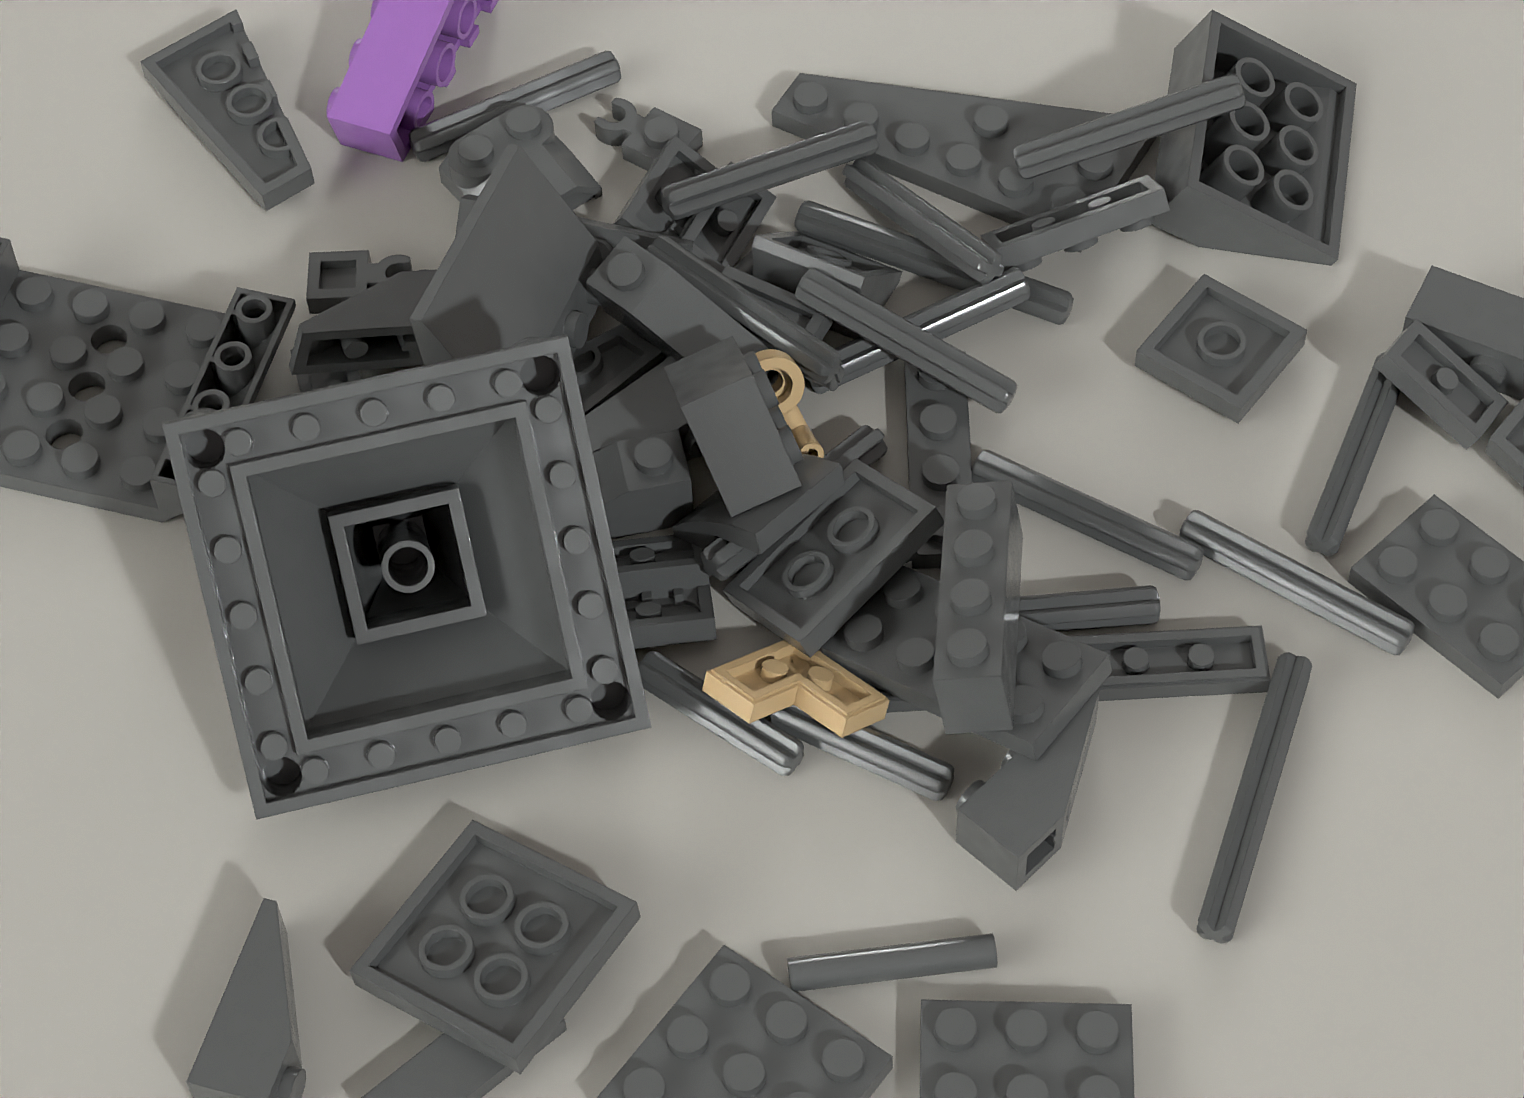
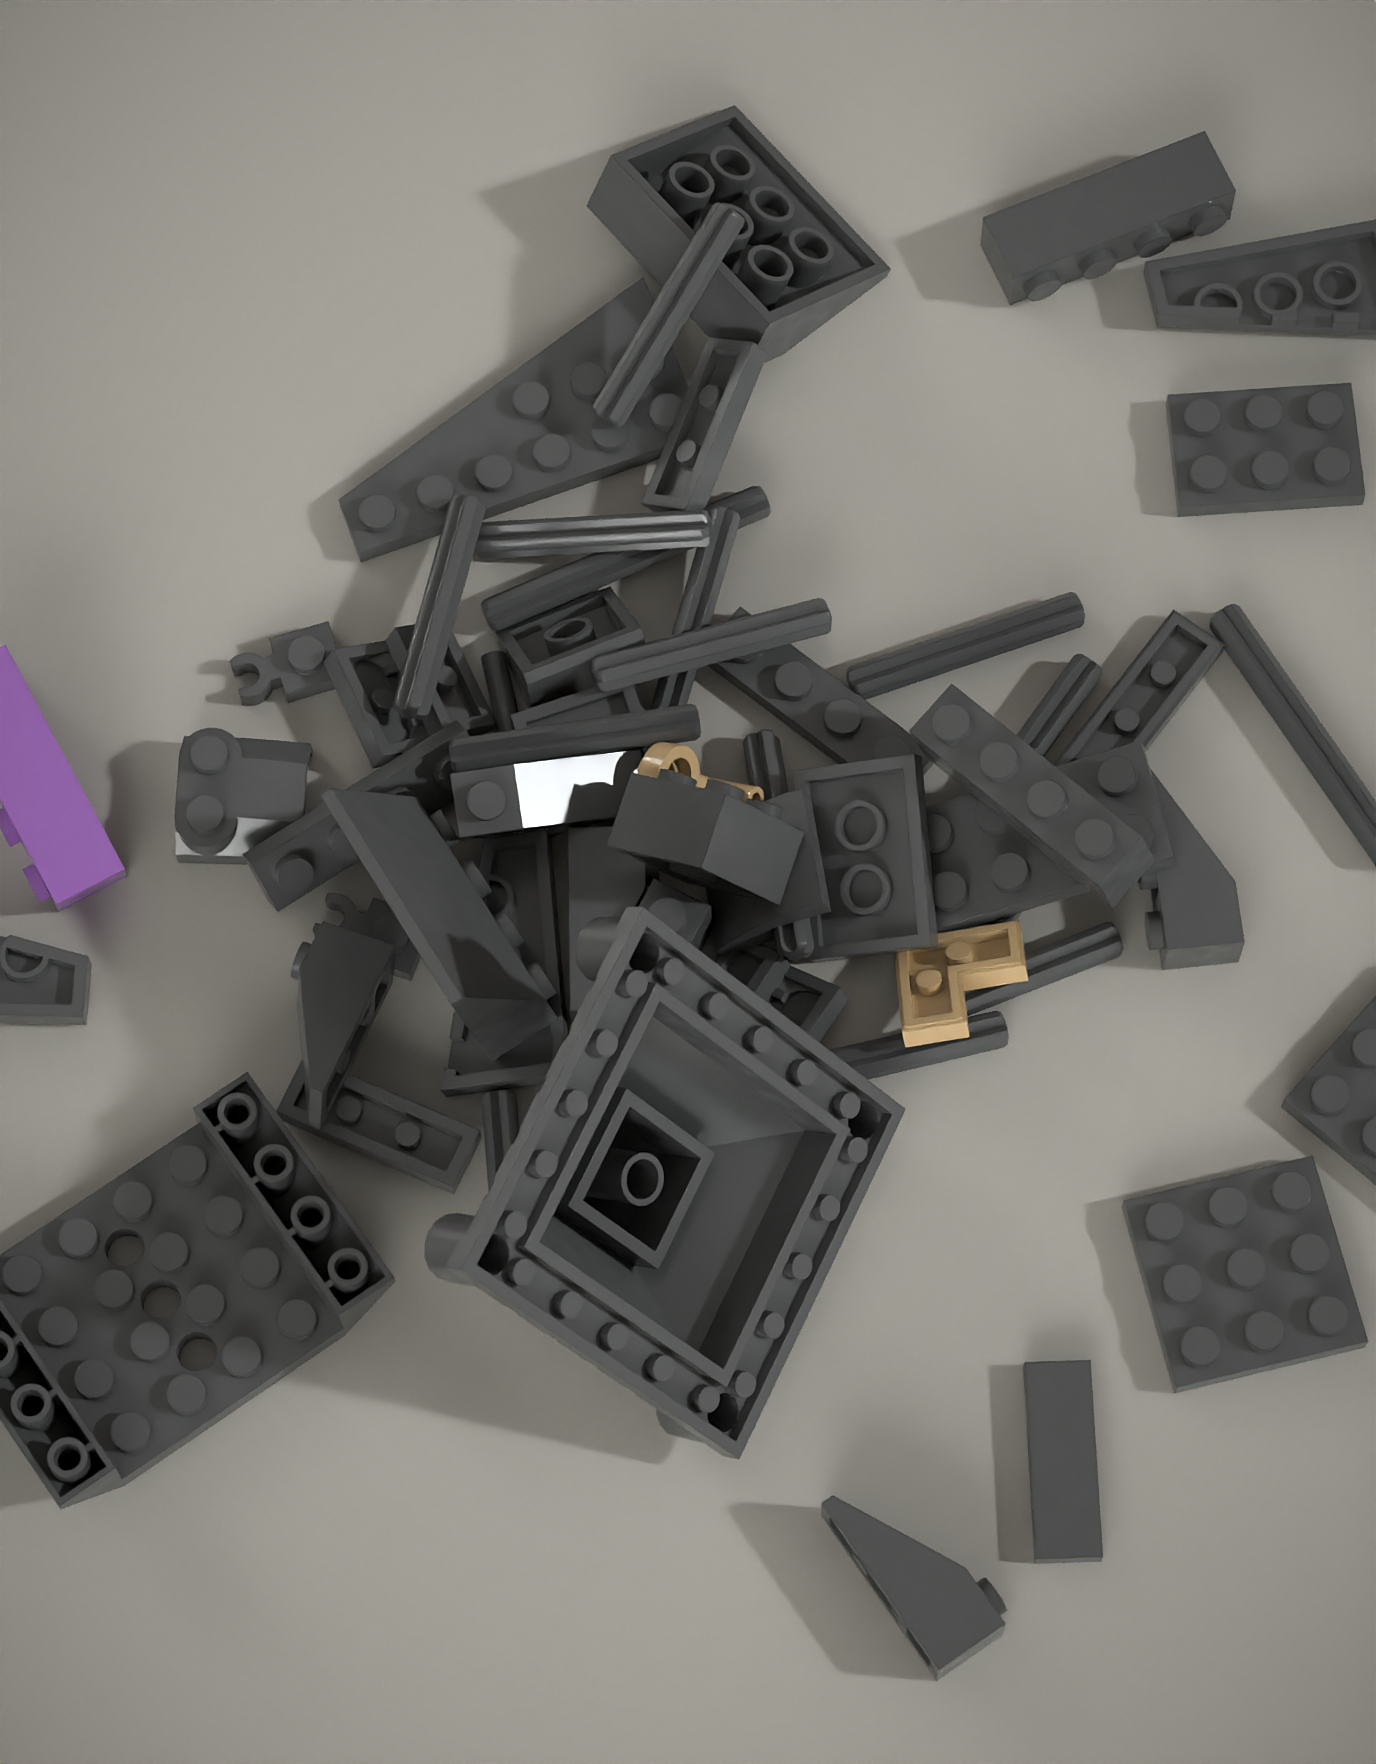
camera: 50 degrees left, 15 degrees up
(343, 274) = (236, 1016): dark grey plate -> none
(496, 945) = (992, 1362): dark grey plate -> none
(544, 92) = (158, 744): dark grey axle -> none
(892, 962) = (1232, 1095): dark grey piece -> none
(1220, 348) = (904, 423): dark grey plate -> none
(1298, 583) = (1155, 553): axle -> none
(1352, 464) = (1080, 413): dark grey axle -> none
(1441, 384) = (1084, 304): dark grey plate -> none

